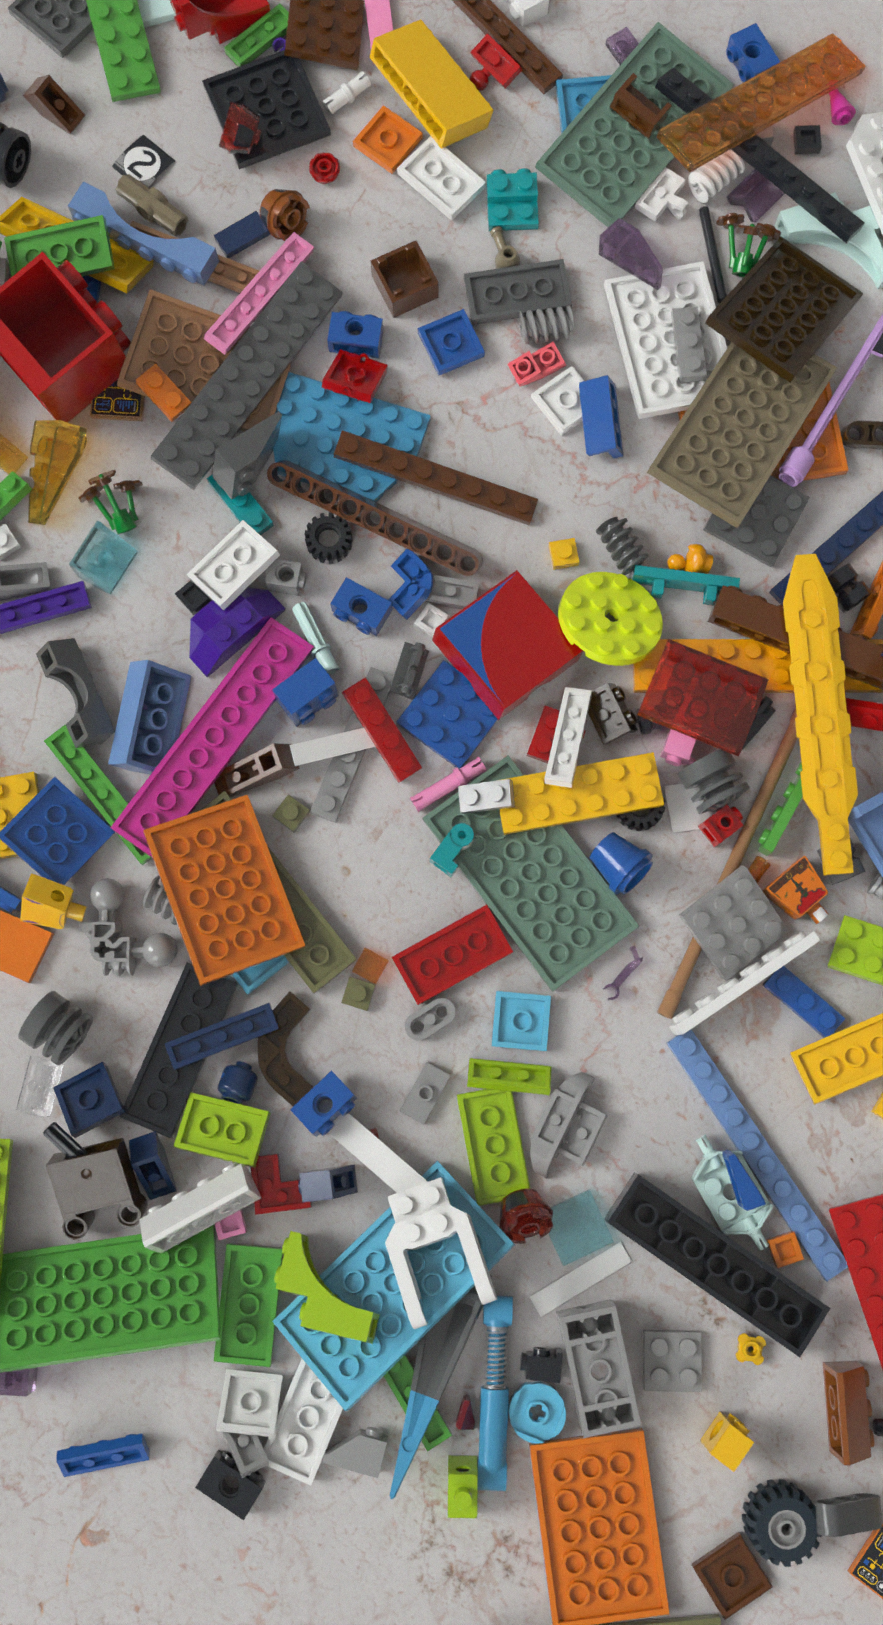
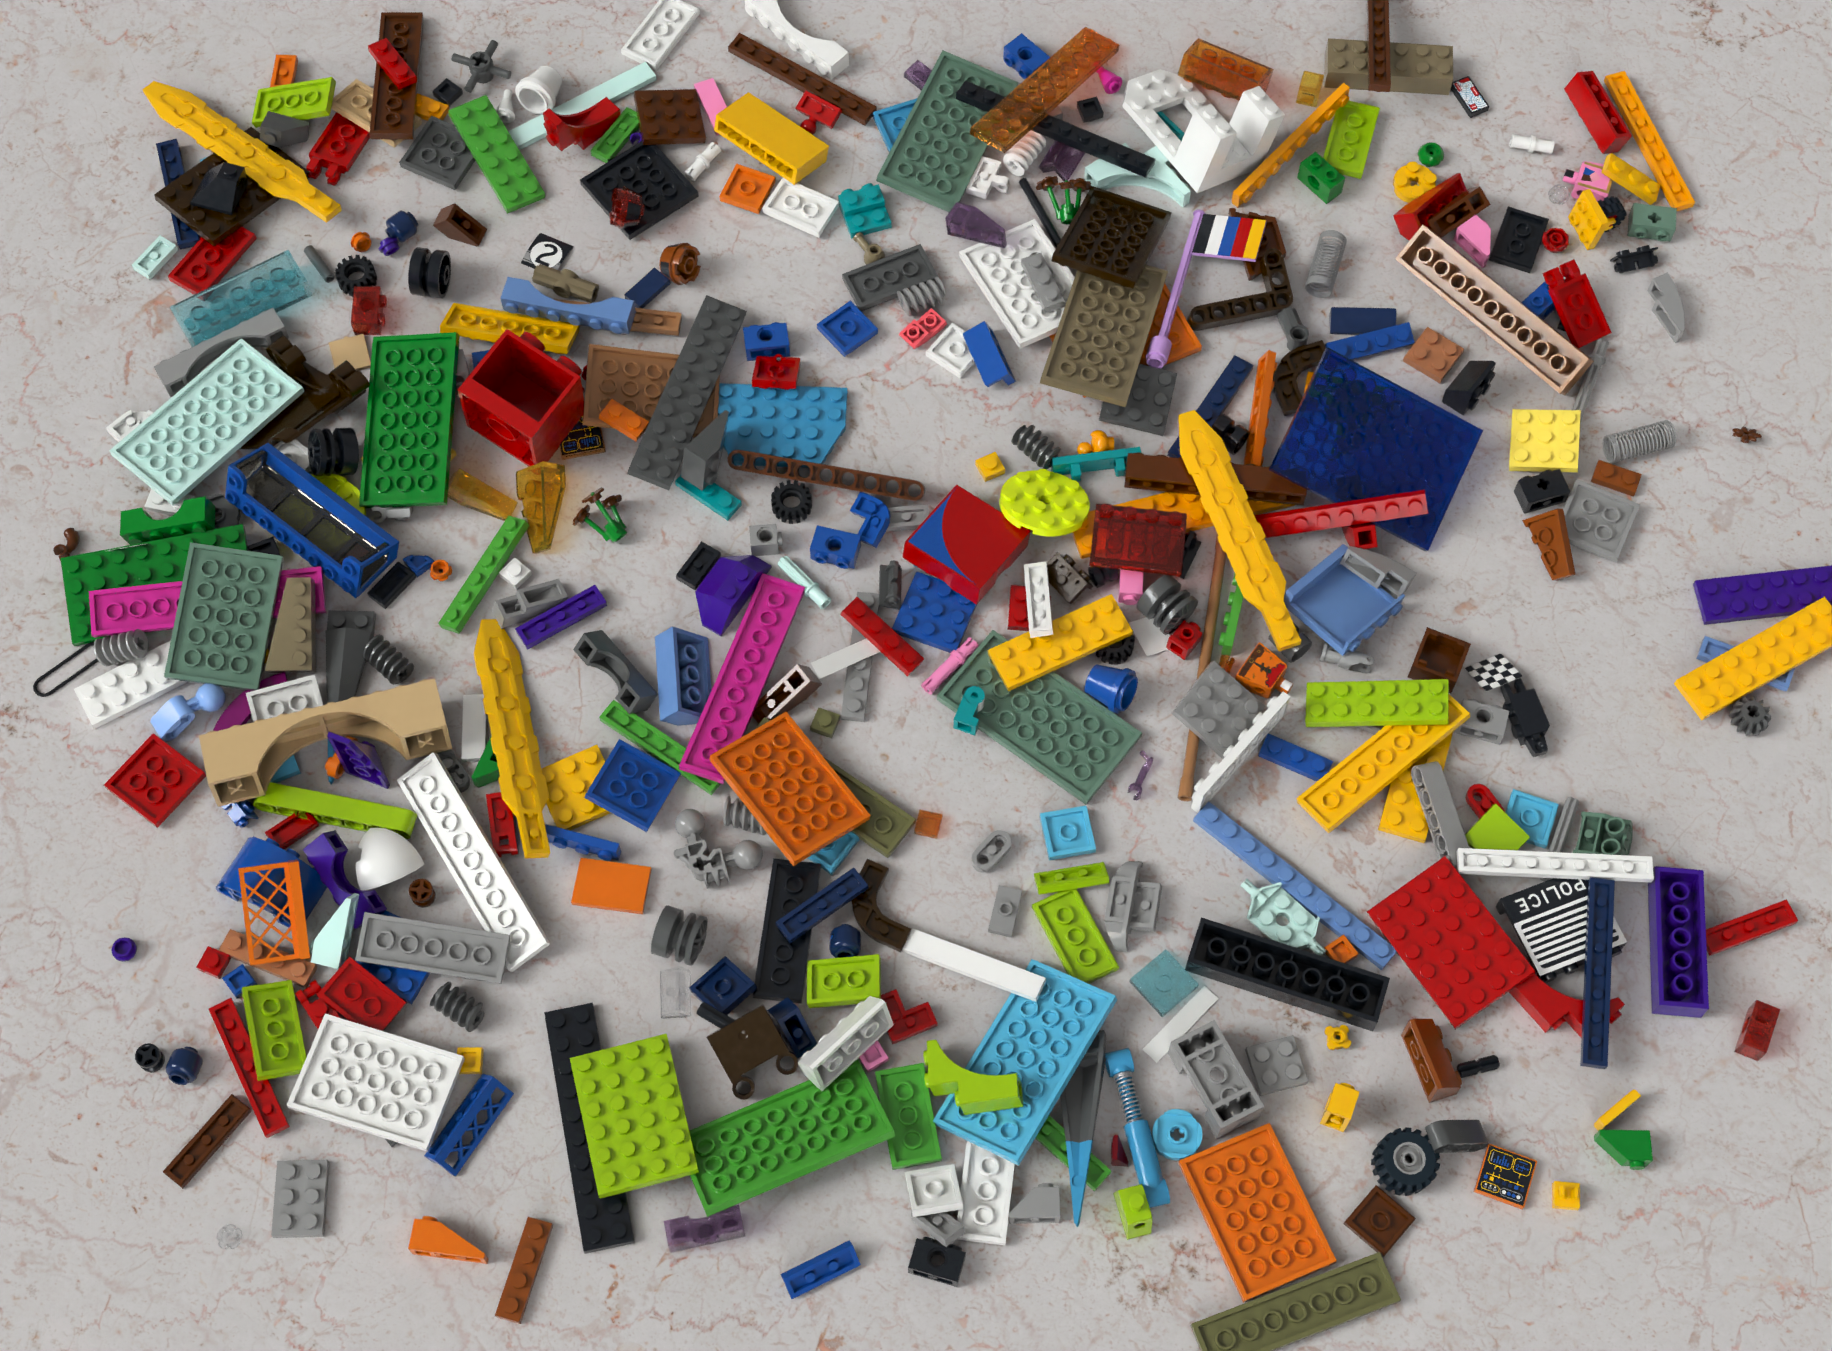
camera: 15 degrees left, 15 degrees down
(49, 903) = (644, 840): yellow torso -> none
(80, 242) = (518, 319): bright green plate -> none
(102, 558) = (606, 563): clear light blue slope -> none
(233, 565) = (720, 538): white plate -> none
(258, 294) = (678, 328): bright pink plate -> none
(306, 693) = (811, 622): blue brick -> none
(308, 1107) = (925, 922): blue brick -> none
(322, 161) = (698, 217): red plate -> none
(327, 1183) = (945, 997): slope -> none
(358, 994) = (925, 848): olive plate -> none
(404, 279) = (794, 289): reddish brown container -> none
(423, 1218) = (1036, 996): white plate -> none
(430, 619) = (895, 544): white tile -> none
(435, 477) = (867, 433): reddish brown plate -> none
(452, 954) = (994, 796): red plate -> none
(486, 796) = (985, 662): plate -> none
(525, 1215) = (1119, 976): clear red cone -> none
(542, 1365) = (1169, 1095): black brick -> none
(638, 109) = (947, 118): reddish brown panel -> none
(744, 1188) = (1288, 903): blue slope -> none

